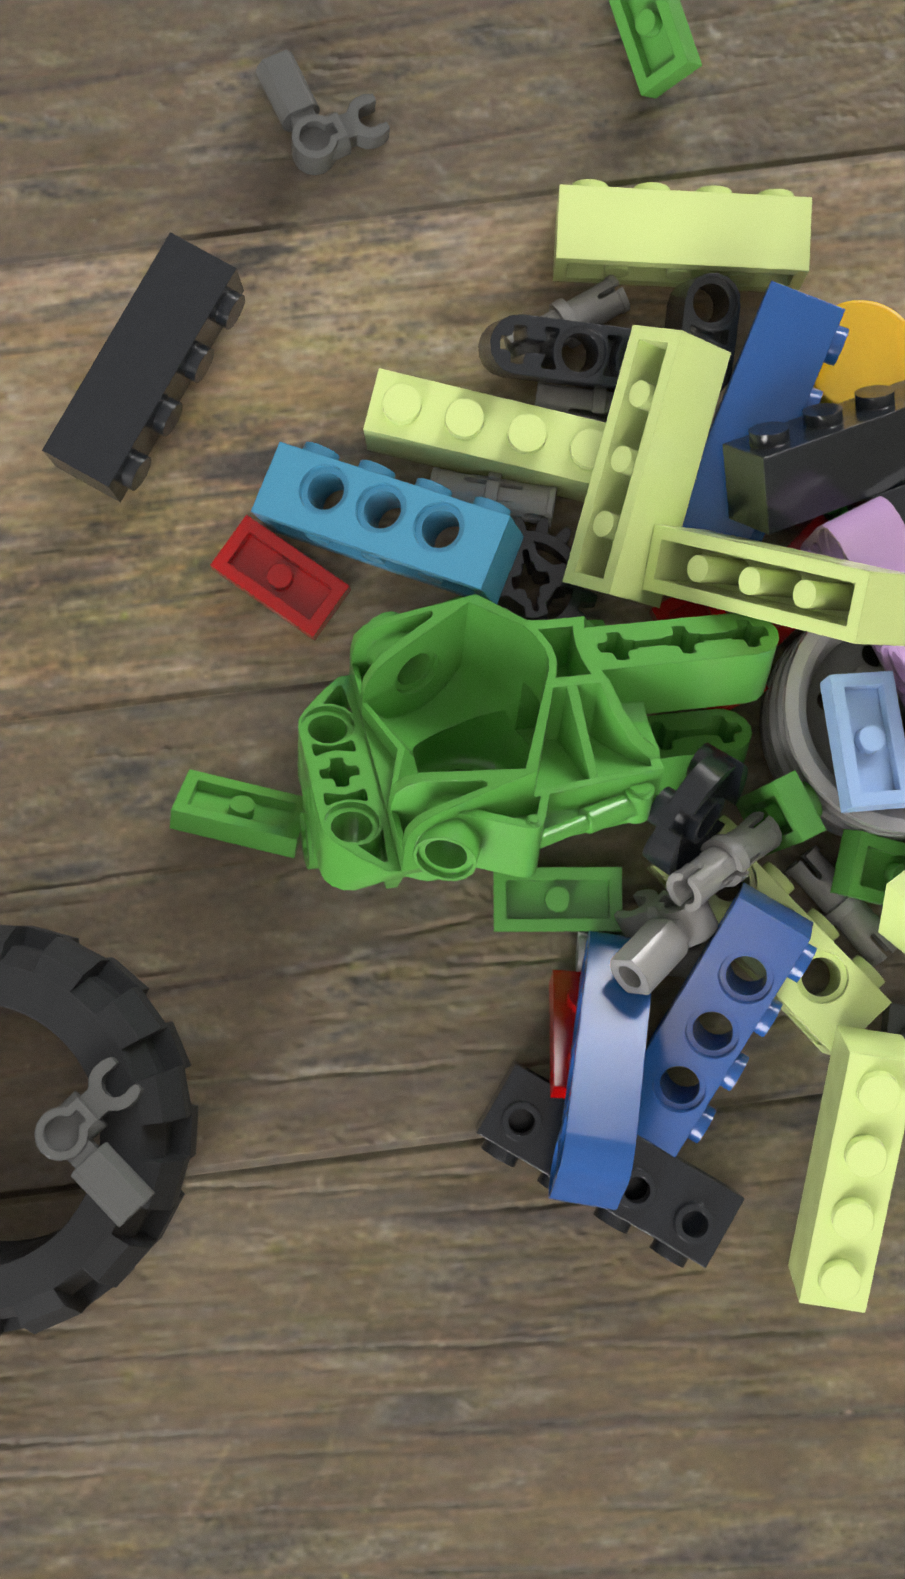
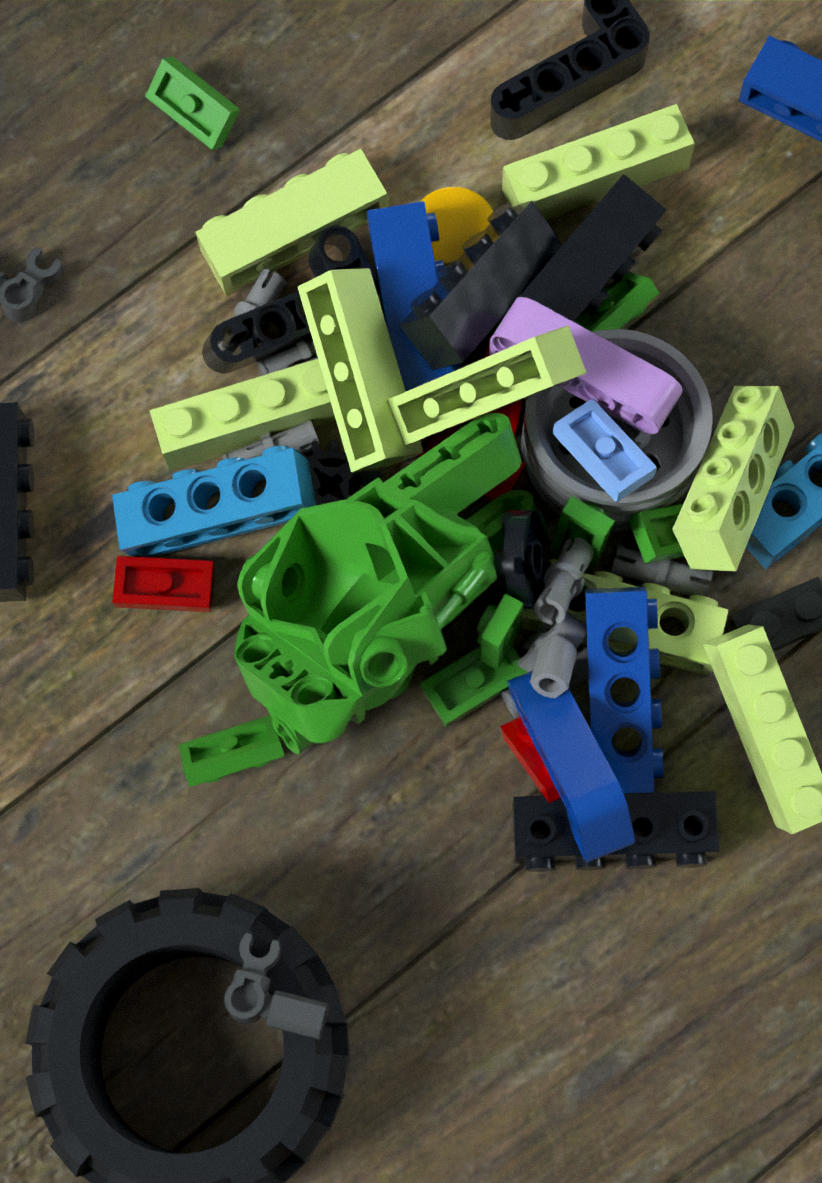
camera: 30 degrees left, 10 degrees down
(614, 871) = (499, 630): none -> bright green plate

